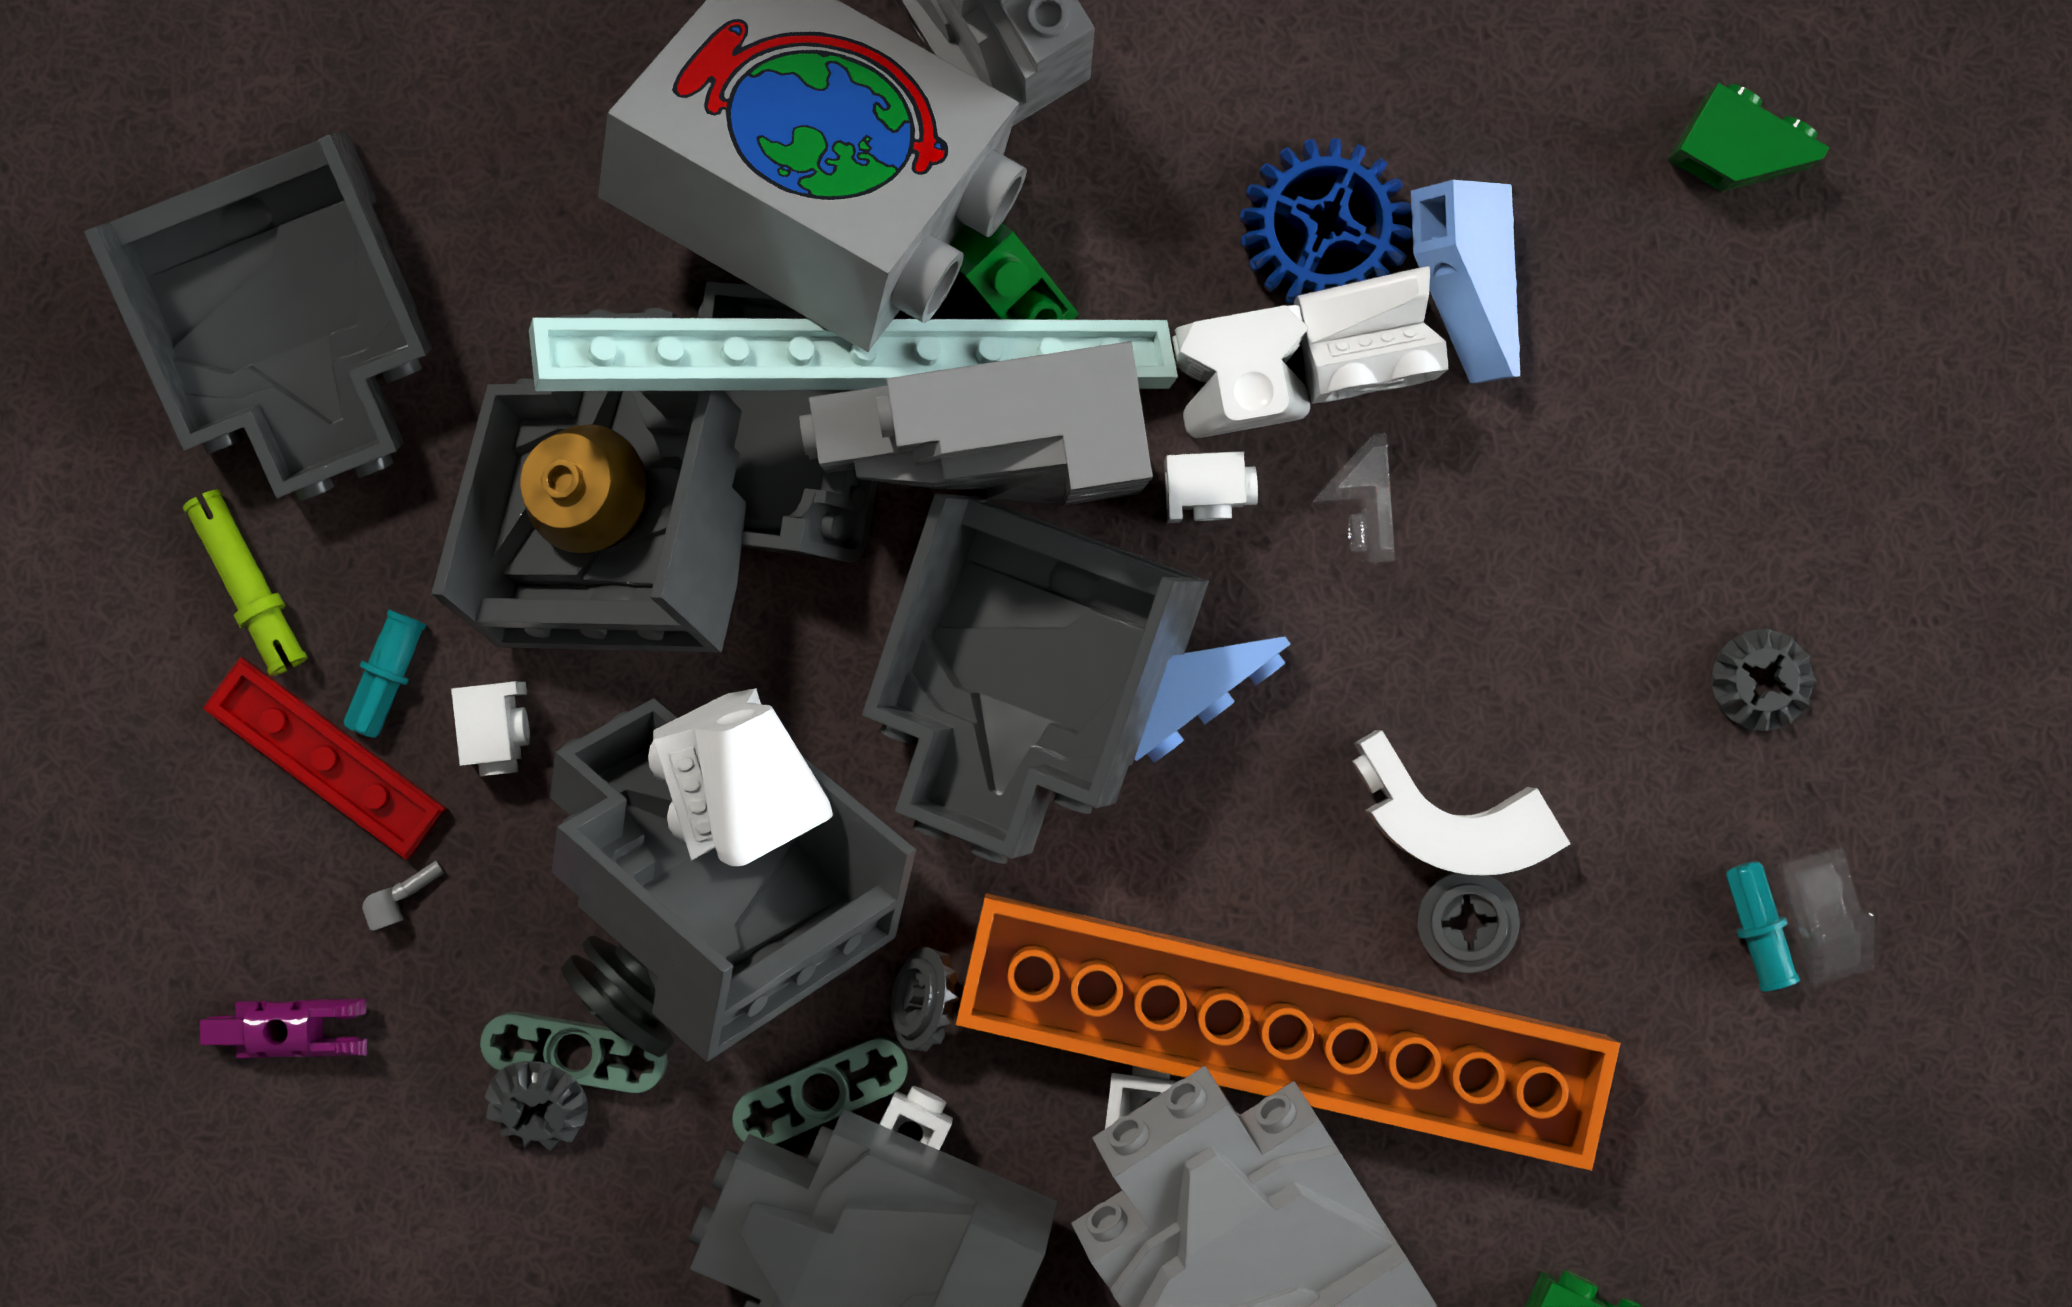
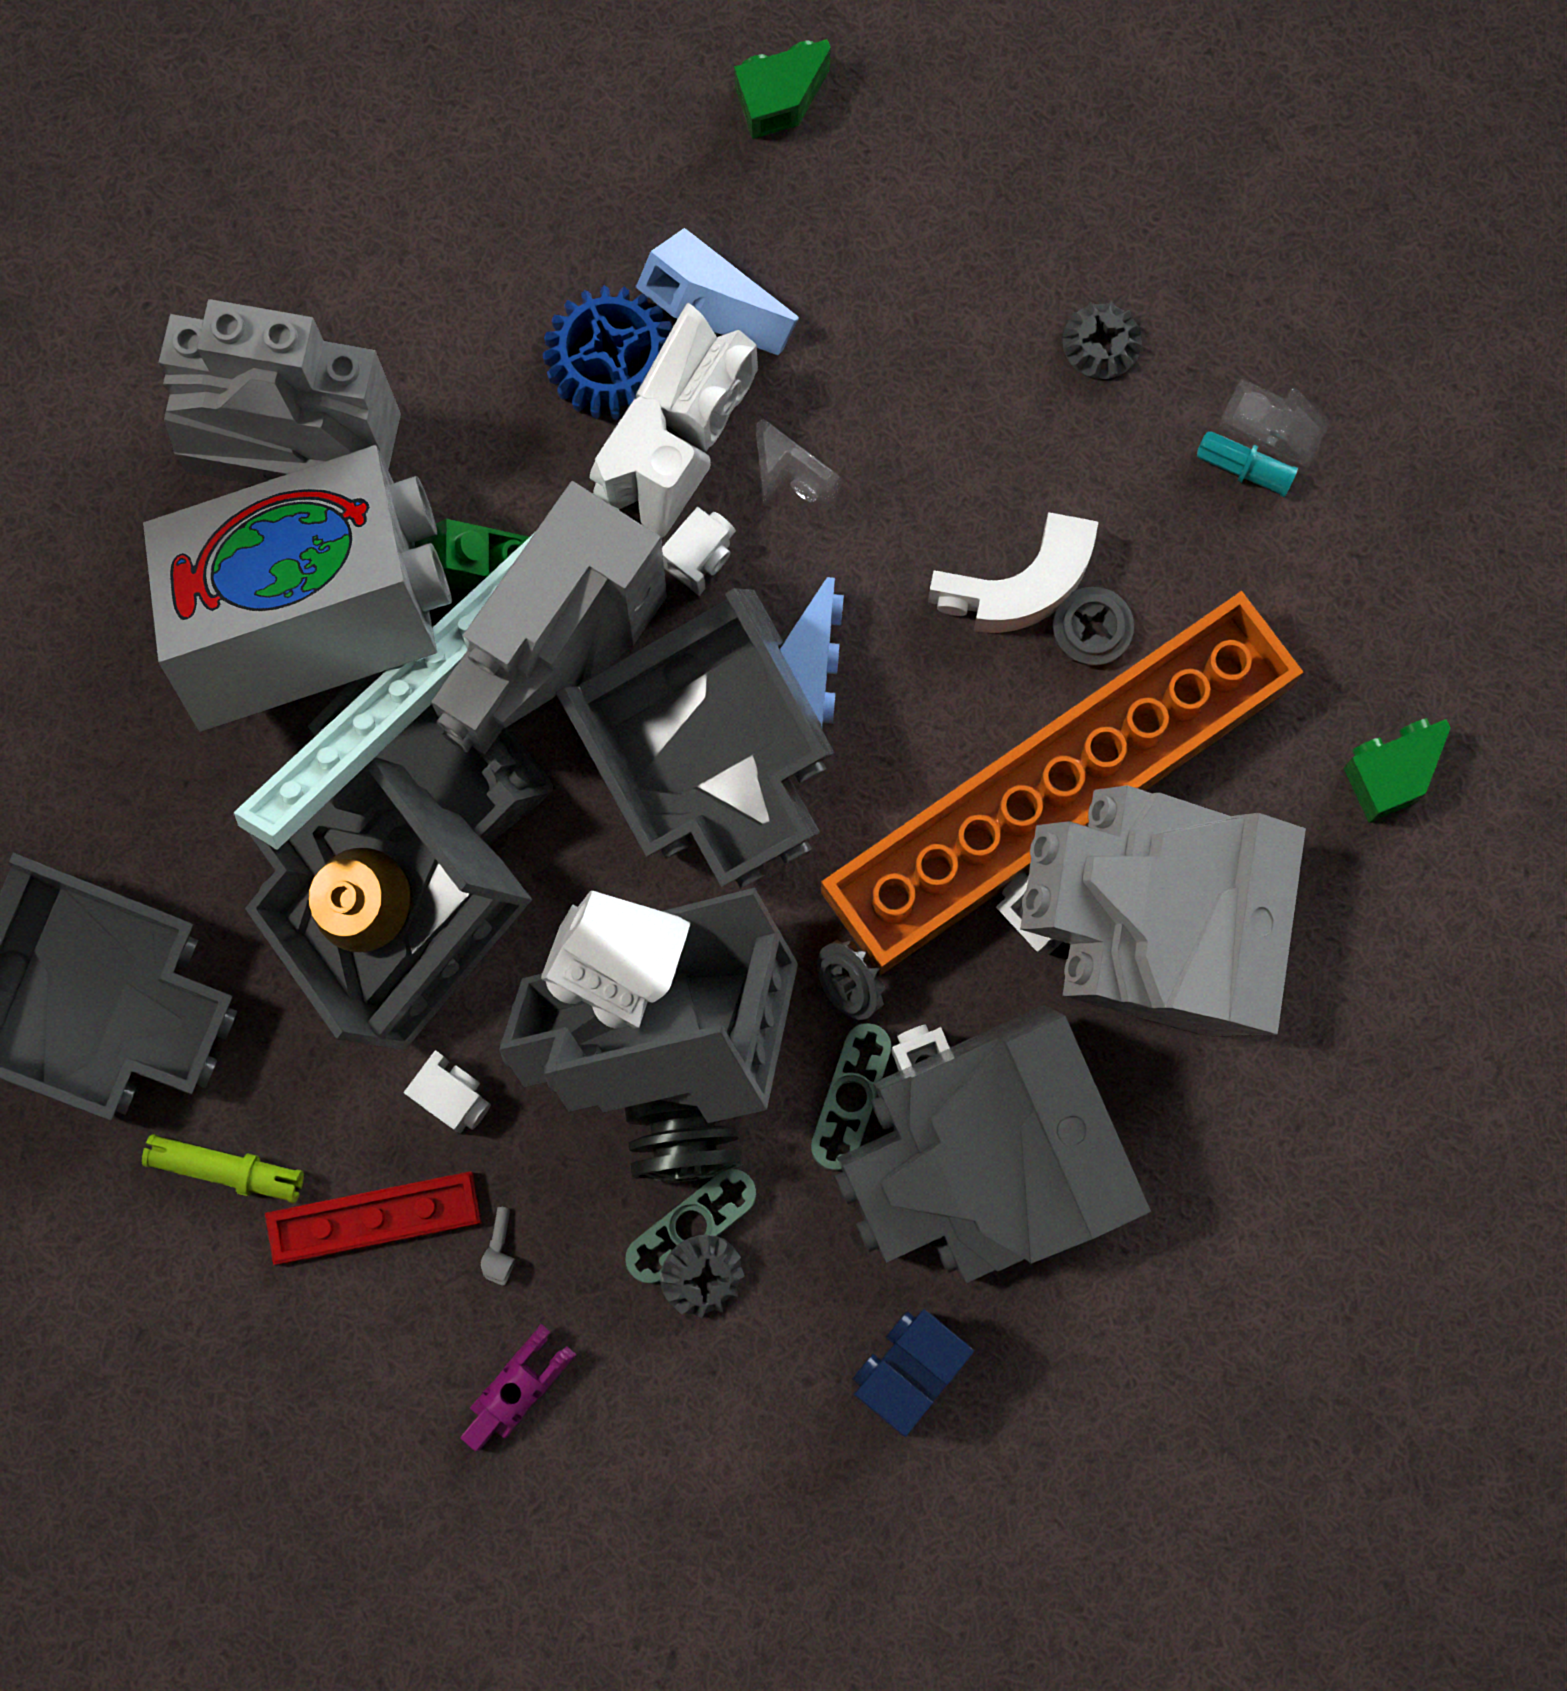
camera: 45 degrees left, 10 degrees down
(383, 674) = (356, 1134): teal axle -> none

